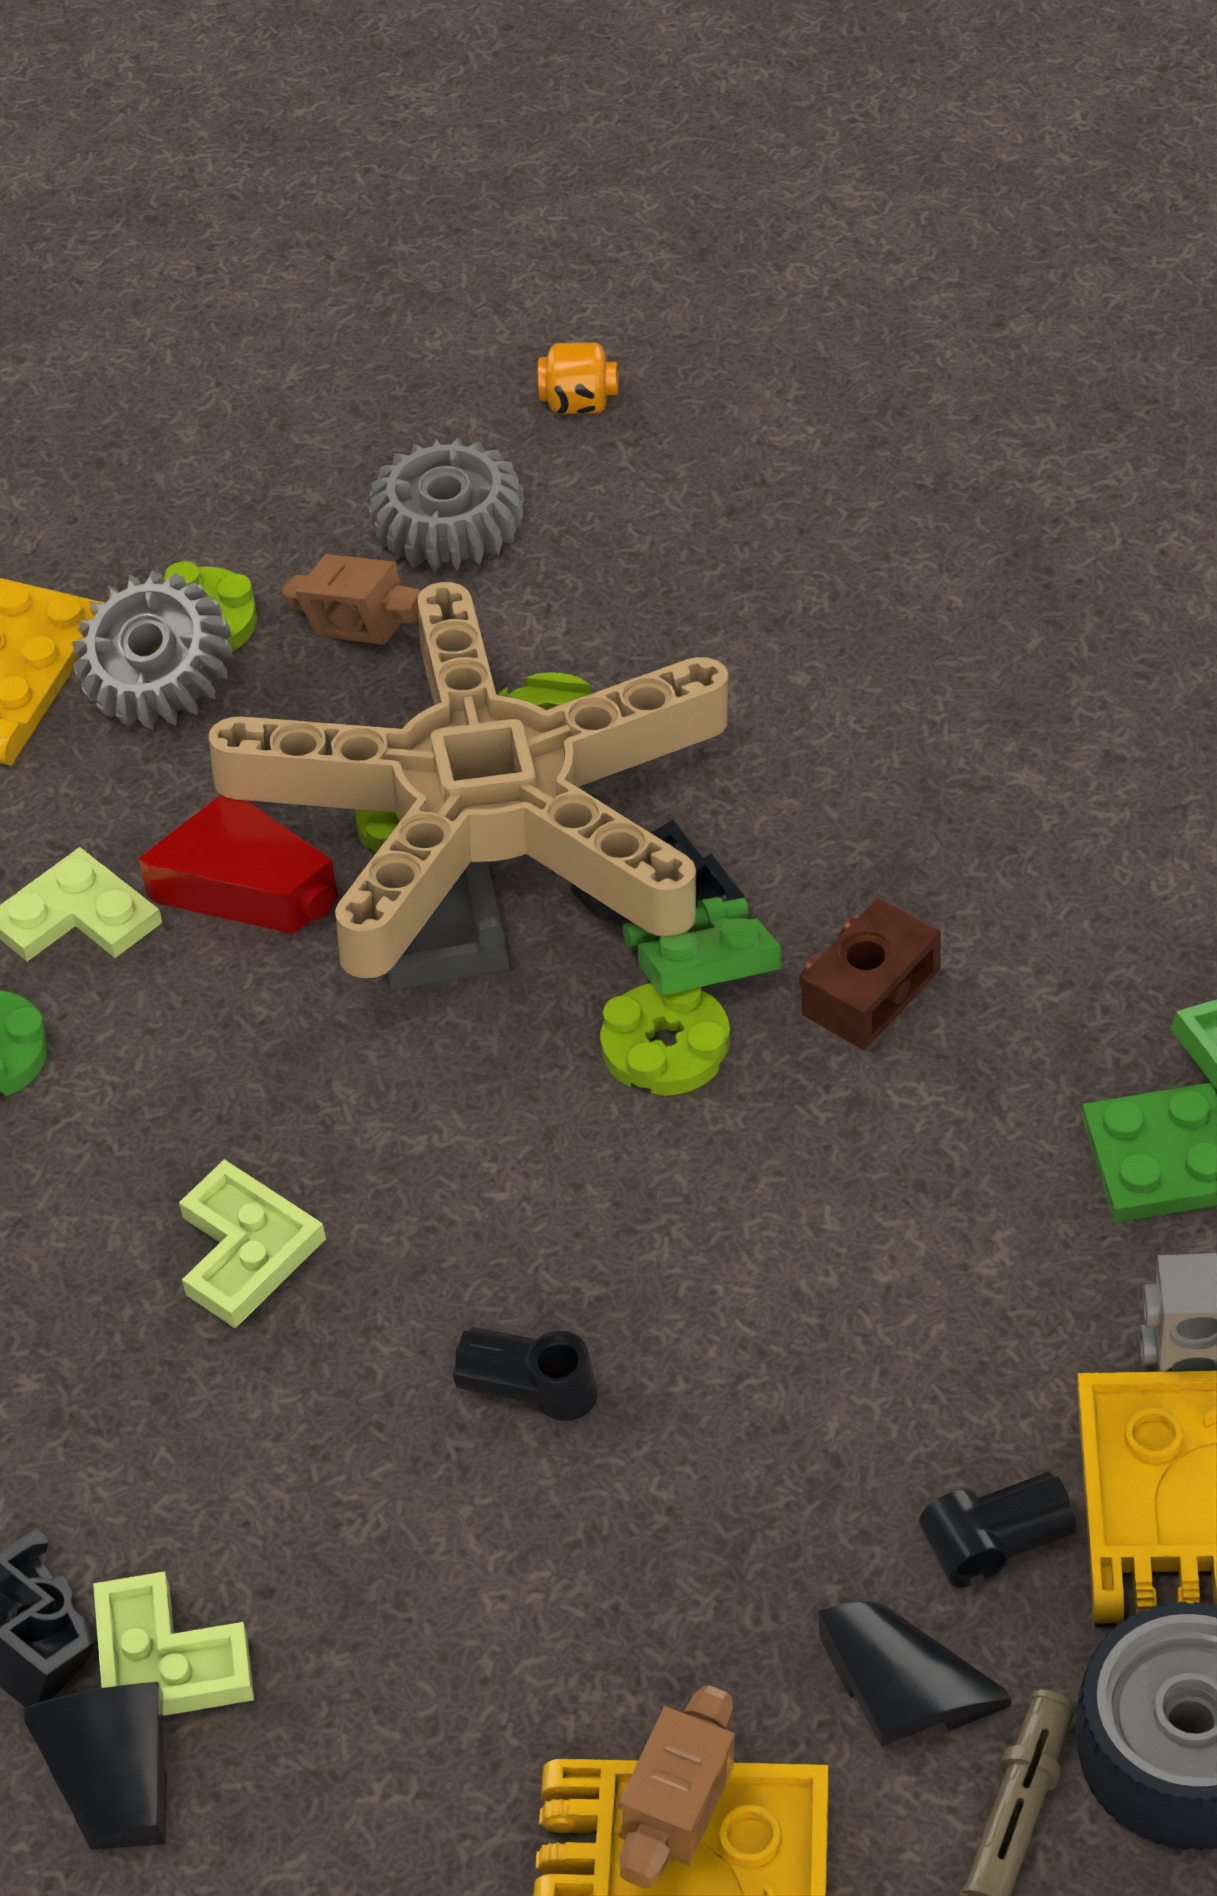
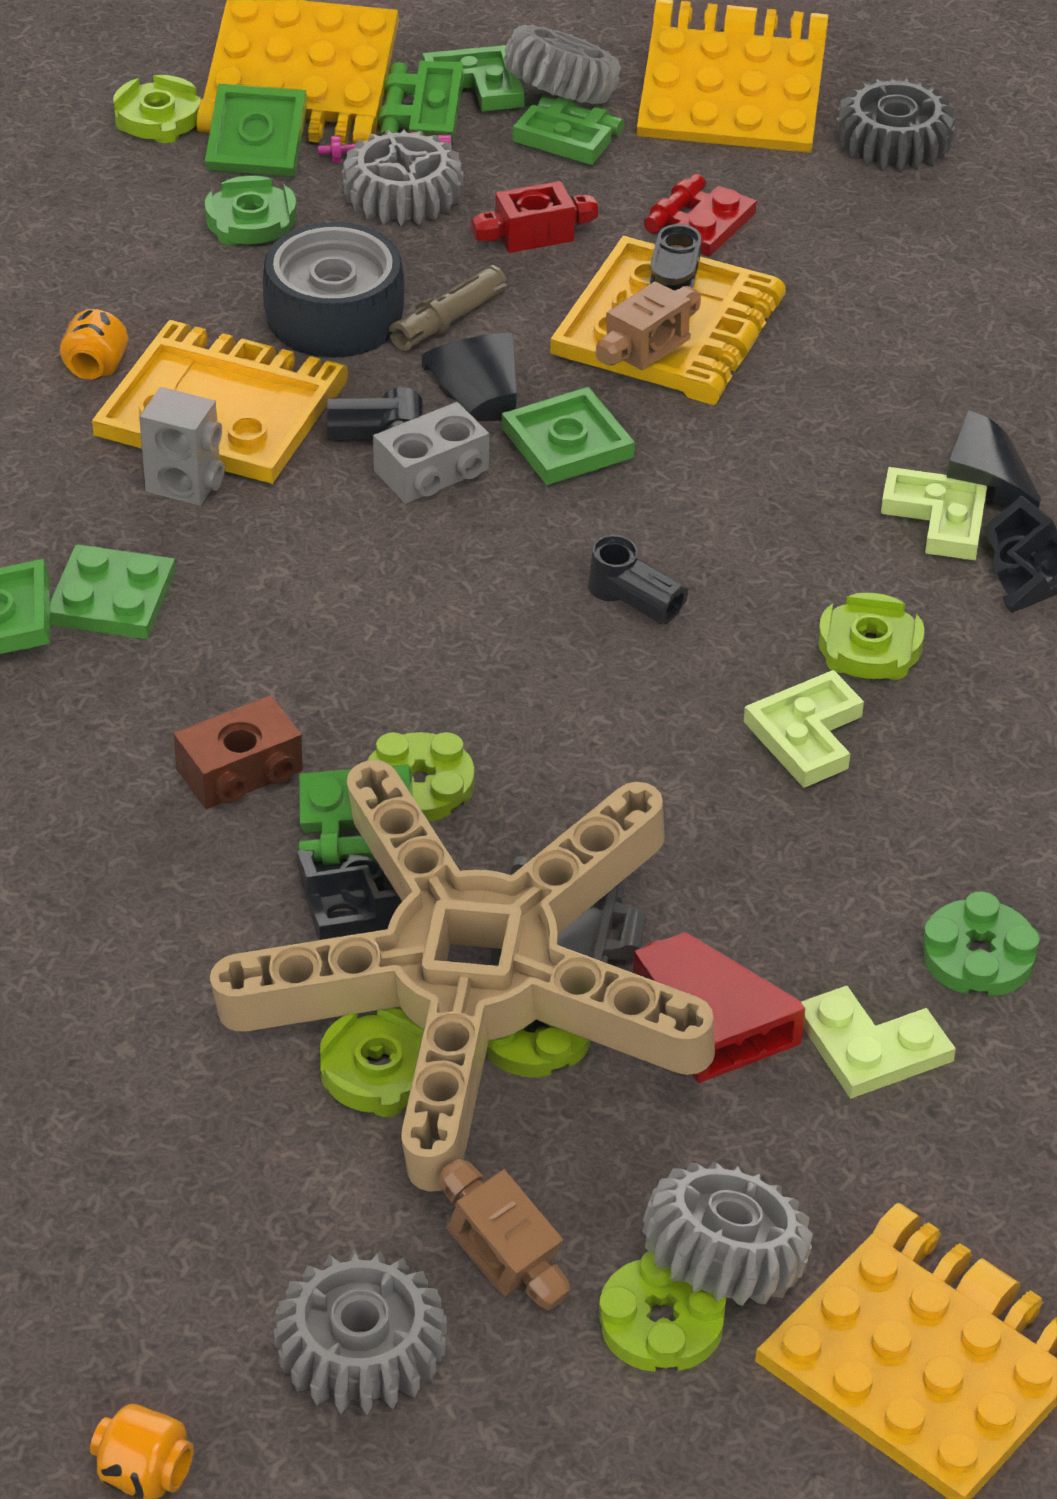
camera: 165 degrees left, 5 degrees down
(211, 1436) = (887, 656): none -> lime plate
(723, 1601) = (568, 435): none -> bright green plate
(892, 1487) = (431, 452): none -> light grey brick

